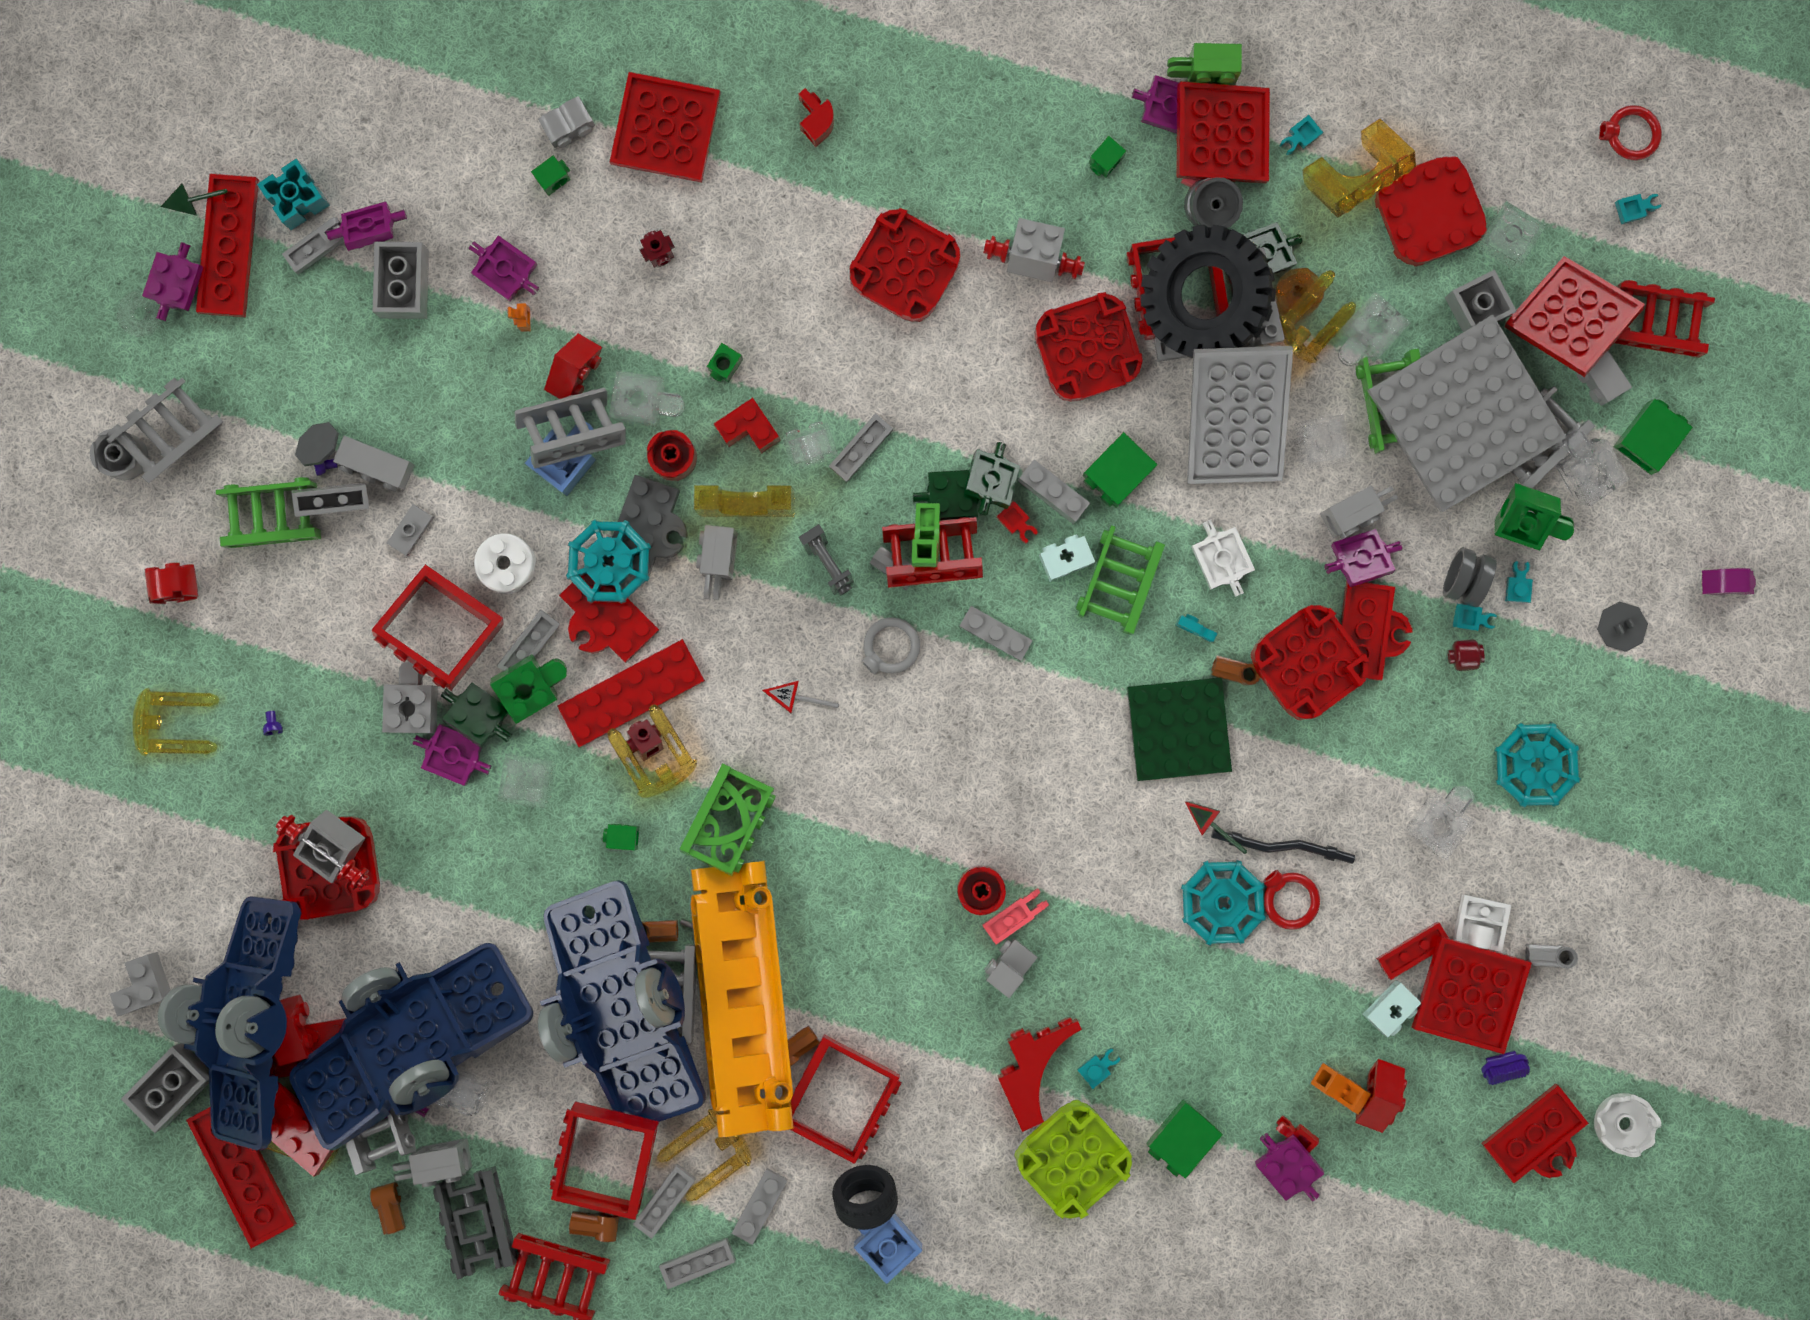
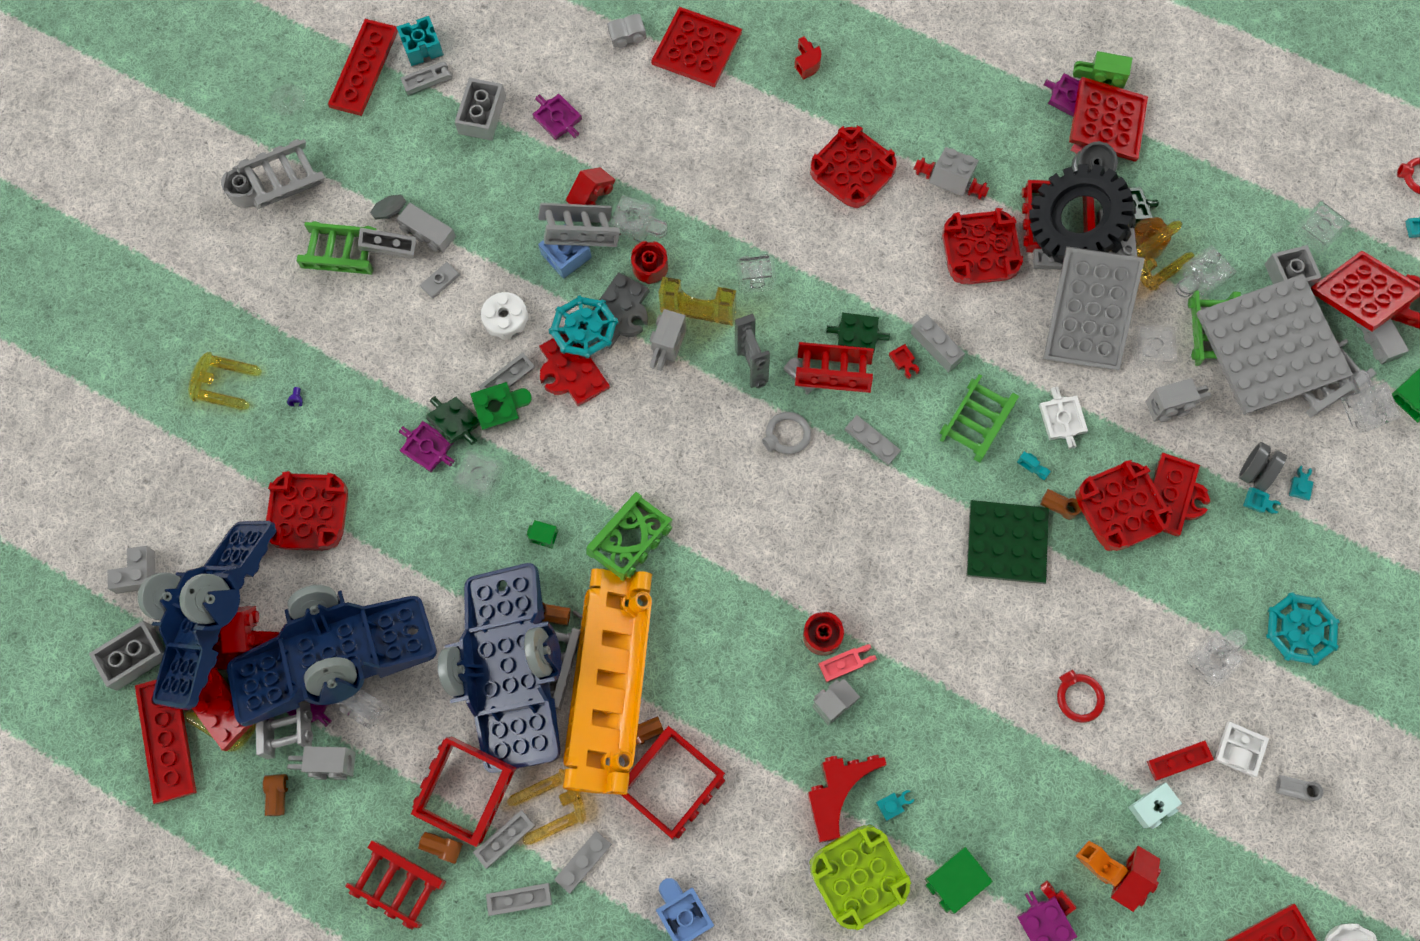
camera: 10 degrees right, 15 degrees down
(171, 583) = (252, 280): red brick -> none
(172, 281) = (317, 81): magenta plate -> none
(181, 202) = (340, 34): dark green piece -> none
(326, 847) = (310, 488): light grey brick -> none
(327, 464) = (387, 223): dark purple piece -> none
(367, 226) = (465, 69): magenta plate -> none
(410, 704) = (404, 401): light grey brick -> none
(460, 597) = (458, 326): red window -> none
(494, 1216) = (359, 827): dark grey fence -> none
(520, 316) = (561, 148): orange plate -> none
(551, 174) = (607, 62): green brick -> none
(630, 693) = (576, 429): red plate -> none
(644, 739) = (579, 463): dark red brick -> none
(661, 255) = (672, 122): dark red brick -> none
(667, 778) = (590, 498): clear yellow piece -> none
(724, 353) = (703, 201): green brick -> none
(750, 421) = (713, 250): red brick -> none
(786, 695) = (698, 453): piece -> none
(861, 447) = (794, 285): light grey plate -> none
(868, 1214) = (674, 868): black tyre -> none
(927, 535) = (833, 349): bright green arch -> none
(991, 478) = (891, 324): plate -> none
(1057, 568) = (931, 399): light aqua brick -> none
(1106, 157) = (1018, 121): green brick -> none
(1119, 470) = (991, 337): green brick -> none
(1204, 818) = (1017, 615): piece -> none
(1237, 900) = (1019, 698): teal plate -> none
(1303, 134) = (1169, 132): teal plate -> none
(1329, 852) = (1118, 665): black bar -> none
(1344, 192) = (1192, 172): clear yellow arch -> none
(1363, 557) = (1177, 437): magenta plate -> none
(1431, 211) = (1261, 200): red plate -> none
(1466, 655) = (1252, 528): dark red head -> none
(1471, 995) = (1226, 807): red plate -> none
(1505, 1067) = (1249, 878): dark purple piece -> none
(1529, 528) = (1318, 431): green brick -> none
(1622, 626) = (1384, 534): dark grey piece -> none

